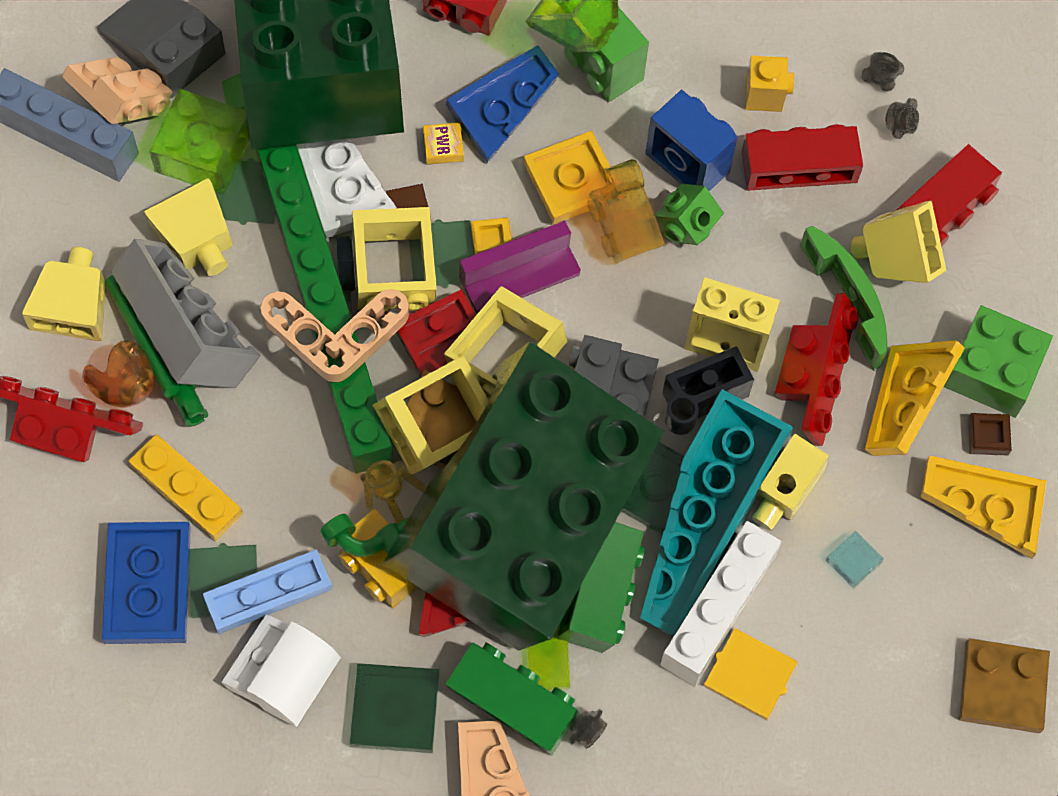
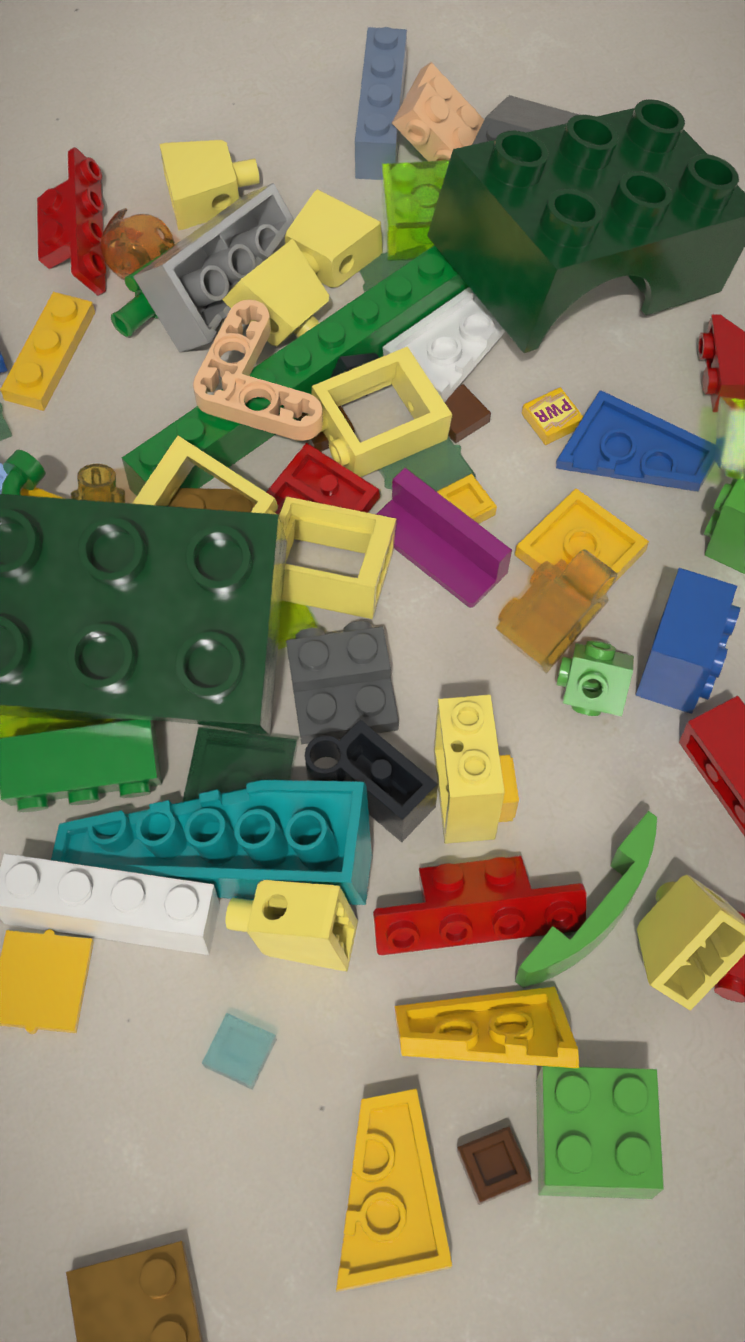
camera: 70 degrees right, 5 degrees down
(240, 280) = (287, 289): none -> light yellow torso

